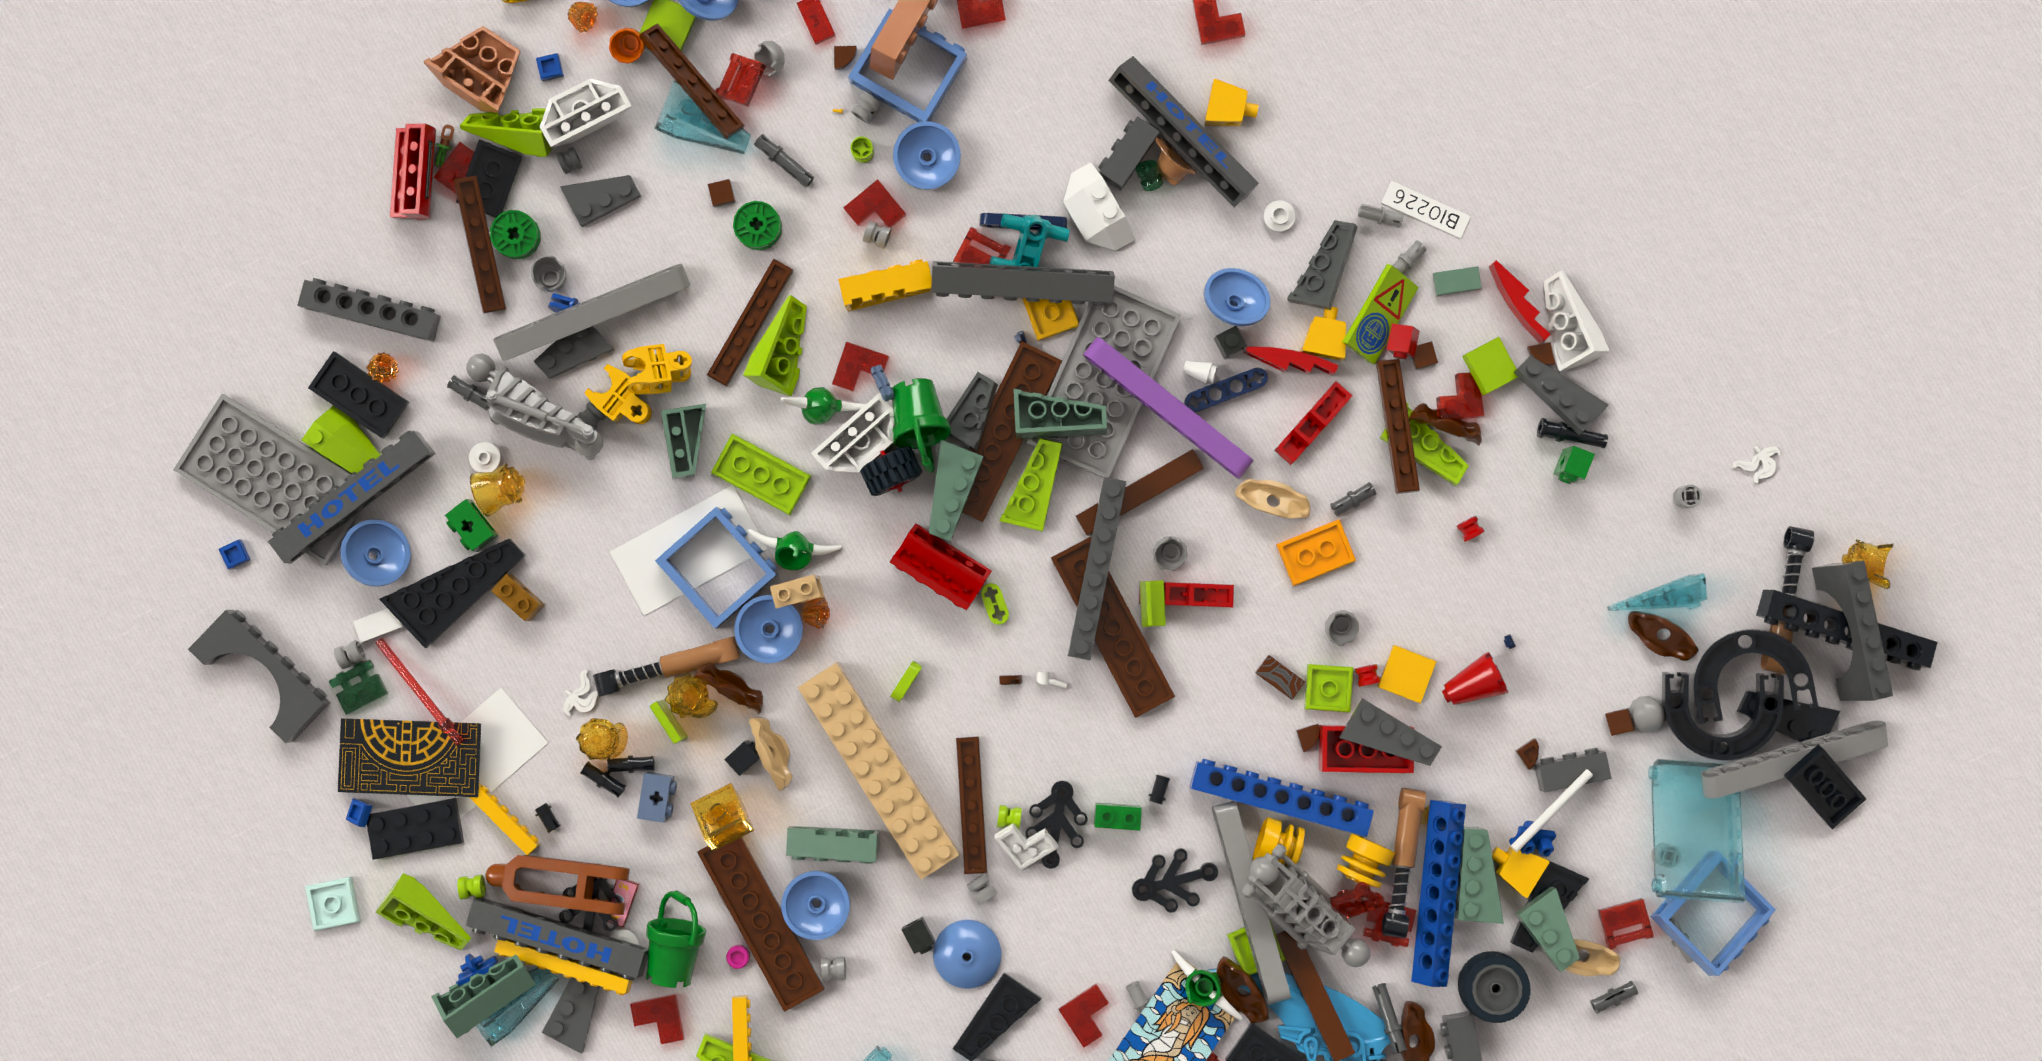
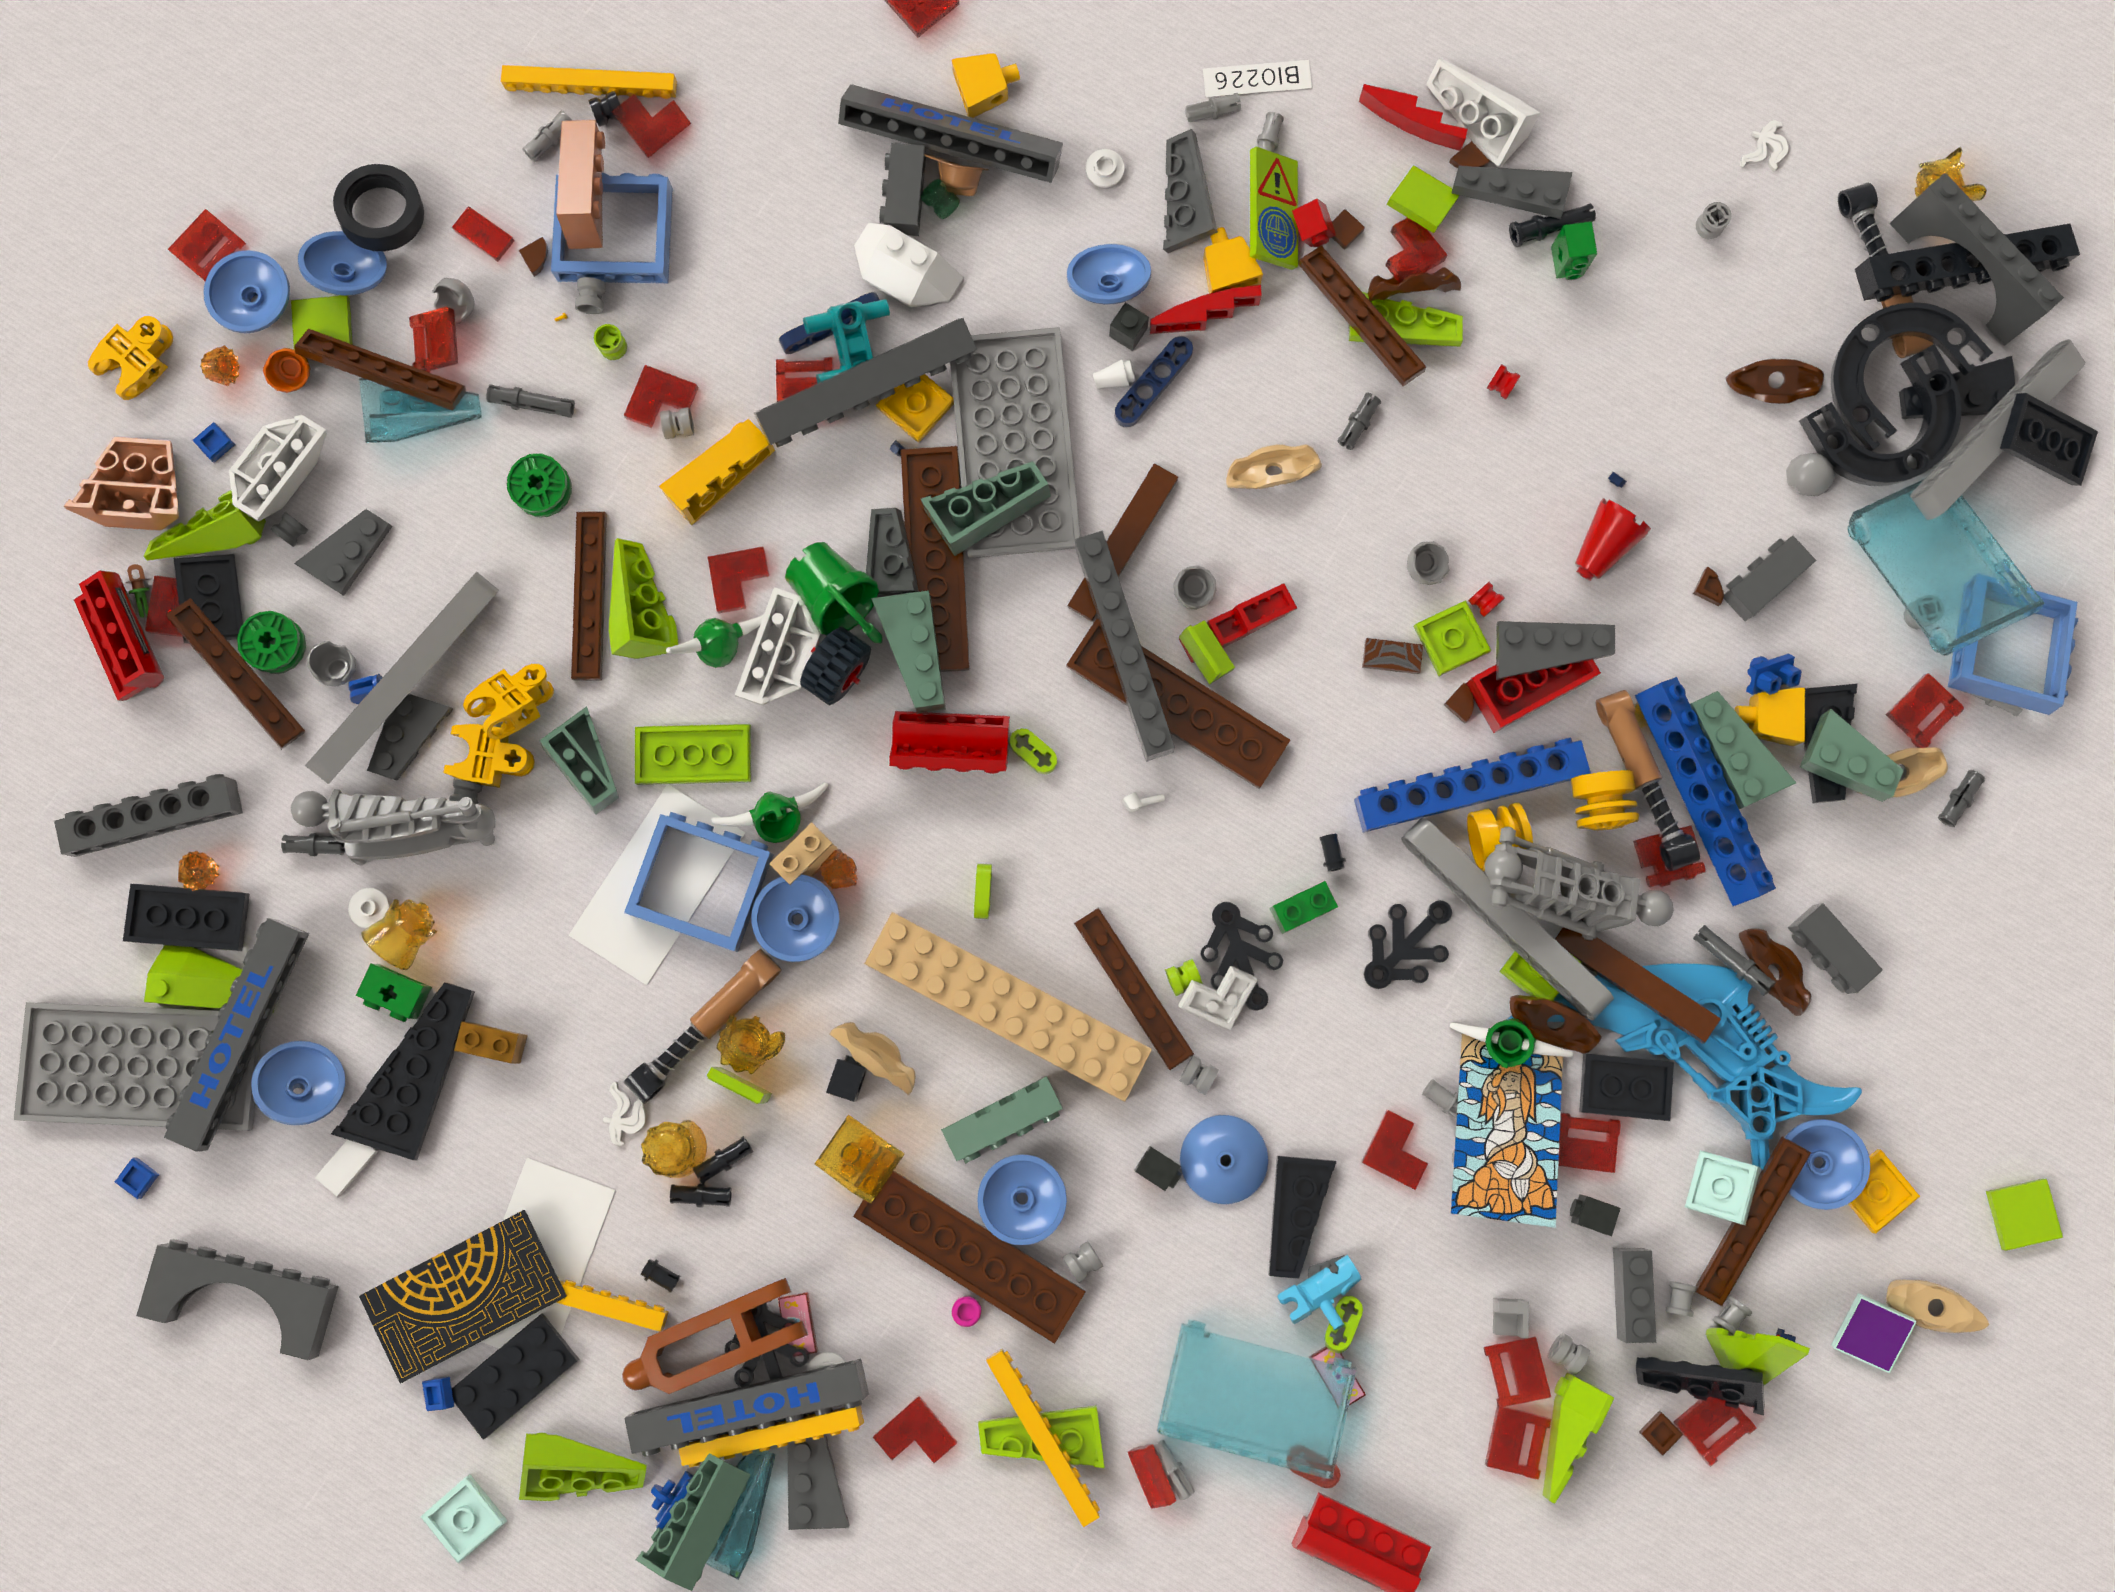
camera: 30 degrees left, 5 degrees down
(347, 655) = (330, 1217): light grey wheel -> none
(362, 693) = (367, 1256): clear green plate -> none
(445, 724) = (482, 1233): clear red bar -> none
(471, 887) = (615, 1405): lime wheel -> none
(648, 806) = (759, 1171): sand blue brick -> none
(673, 945) = (885, 1337): green piece -> none
(721, 192) = (479, 473): reddish brown tile -> none
(731, 686) = (788, 1006): reddish brown piece -> none
(882, 383) = (772, 575): sand blue axle -> none
(924, 139) = (681, 290): medium blue dish -> none
(1010, 679) = (1097, 824): reddish brown tile -> none
(1033, 492) = (1006, 603): lime wing -> none
(1168, 407) = (1101, 431): medium lavender beam -> none
(1313, 423) = (1268, 364): red slope -> none
(1316, 552) = (1352, 500): light orange tile -> none
(1351, 902) = (1617, 857): clear red plate -> none
(1406, 674) = (1527, 575): yellow tile -> none
(1457, 281) = (1334, 132): sand green tile -> none
(1476, 985) = (1848, 854): wheel -> none
(1552, 810) = (1774, 629): white axle -> none
(1620, 721) = (1786, 497): reddish brown tile -> none
(1676, 594) = (1767, 326): clear light blue wedge -> none

